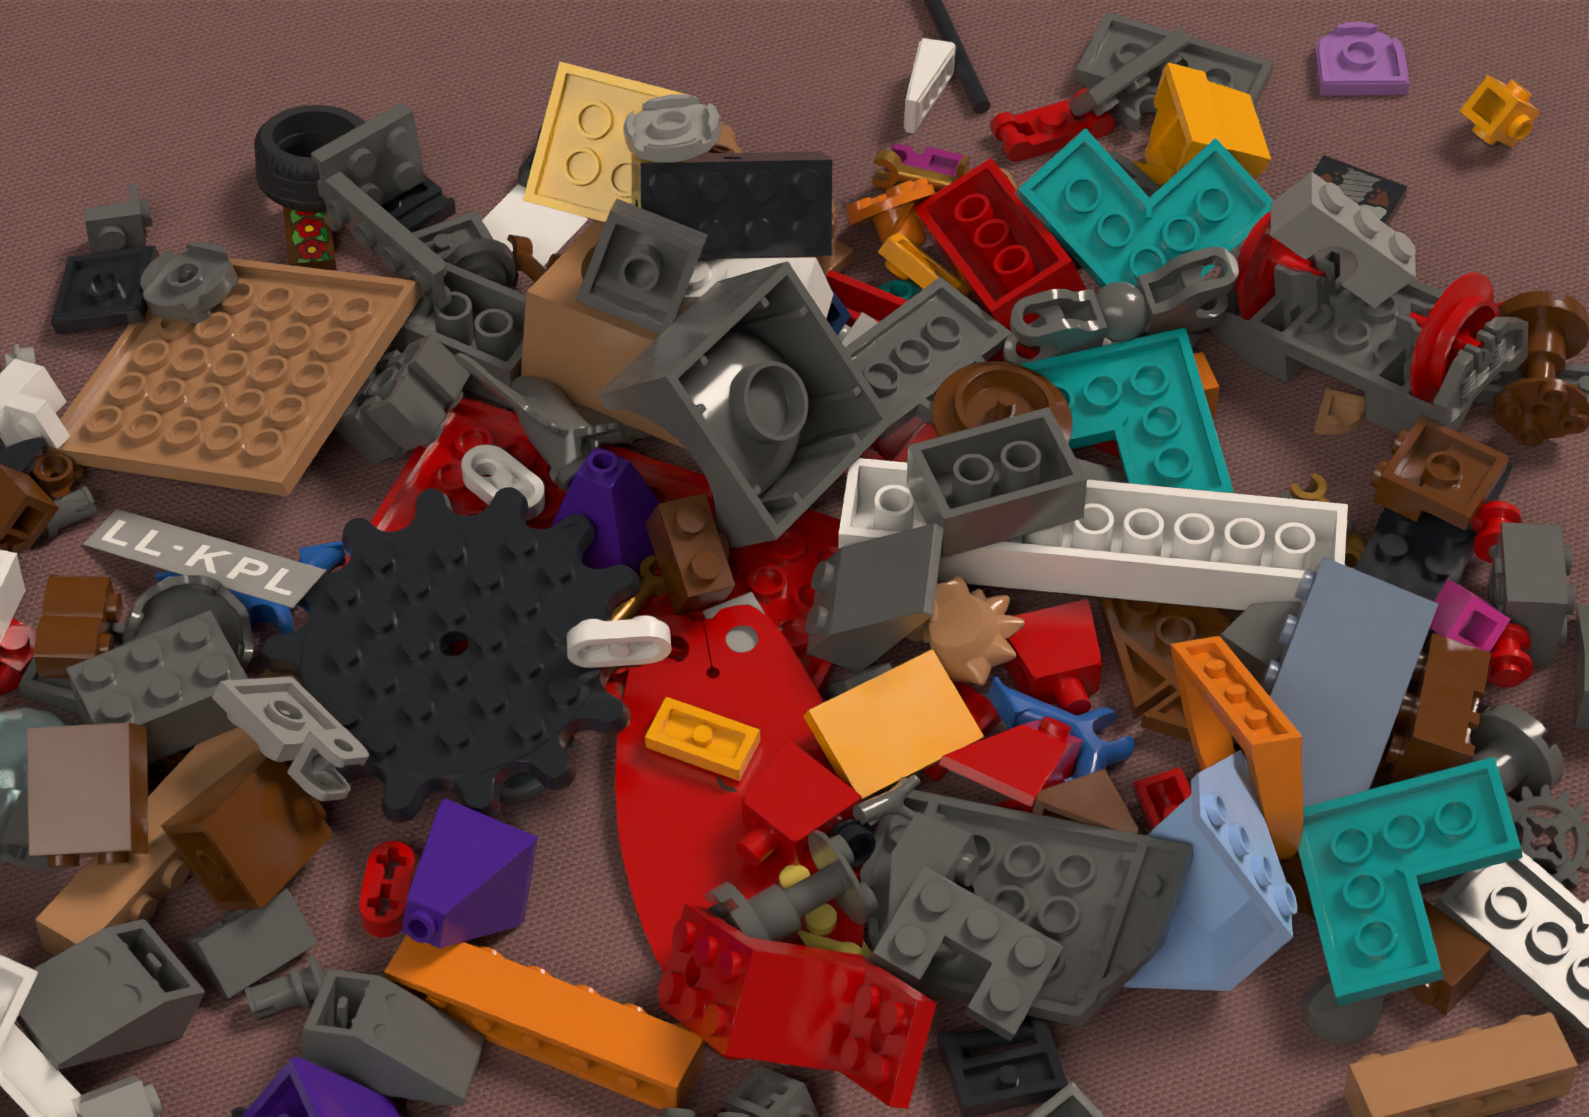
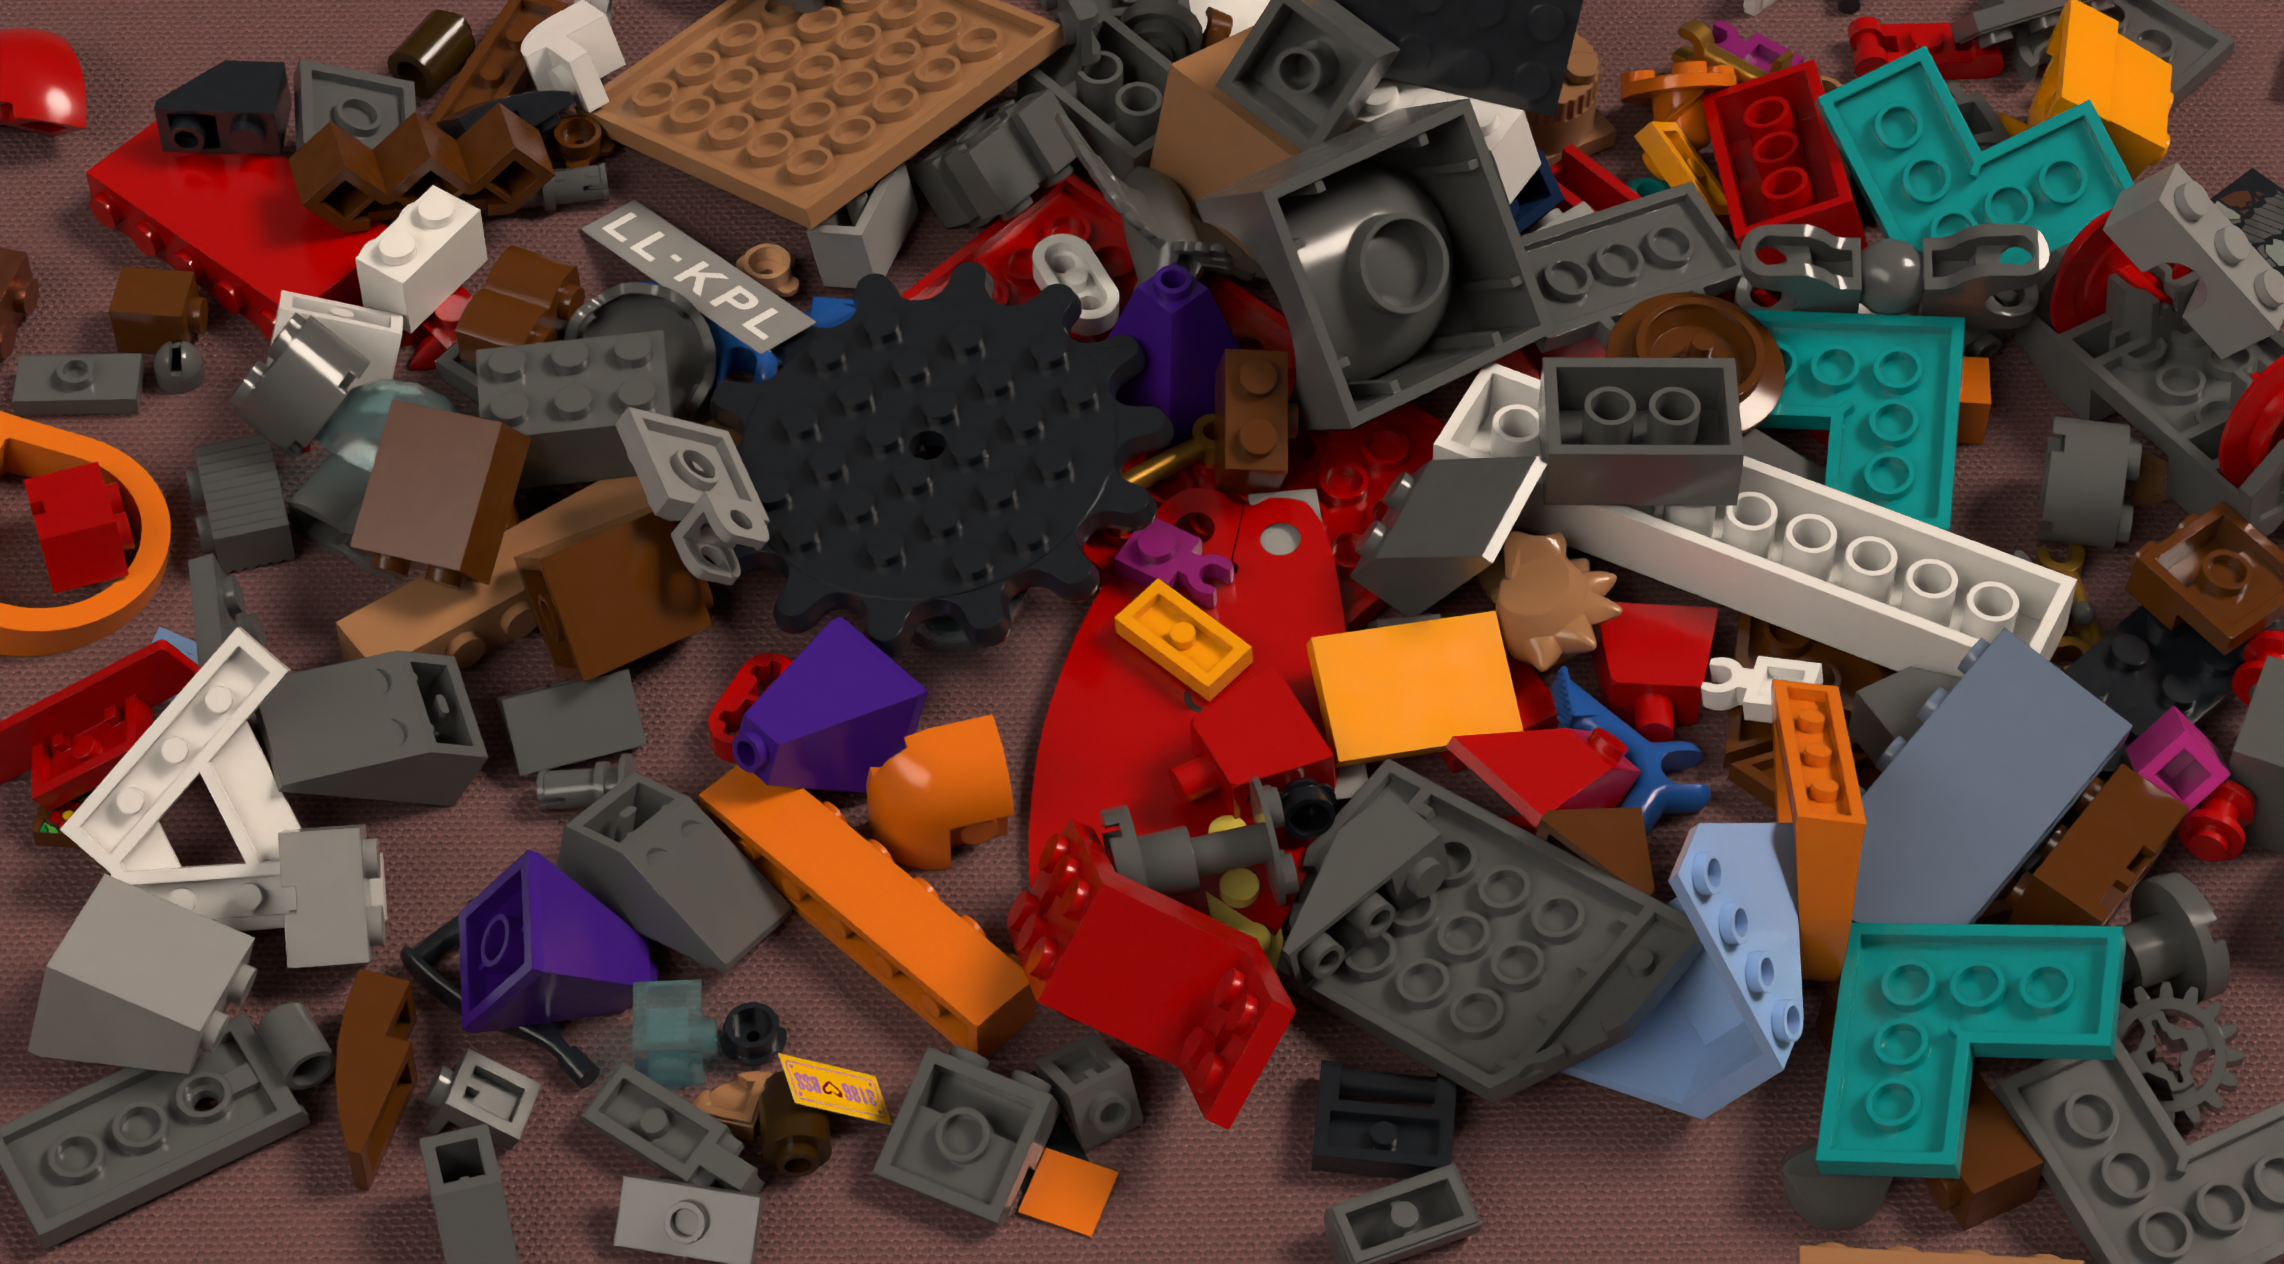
camera: 20 degrees right, 0 degrees up
(252, 529) = (771, 268): none -> light nougat plate
(320, 495) = (865, 232): none -> light grey brick
(573, 911) = (941, 793): none -> orange brick
(618, 642) = (1108, 492): white plate -> none
(671, 679) = (1175, 559): none -> magenta plate
(887, 803) = (1363, 774): dark grey bar -> none
(948, 914) = (1434, 985): dark grey plate -> none
(1147, 651) = (1753, 686): none -> white plate
(1312, 427) = (2087, 483): none -> dark grey brick

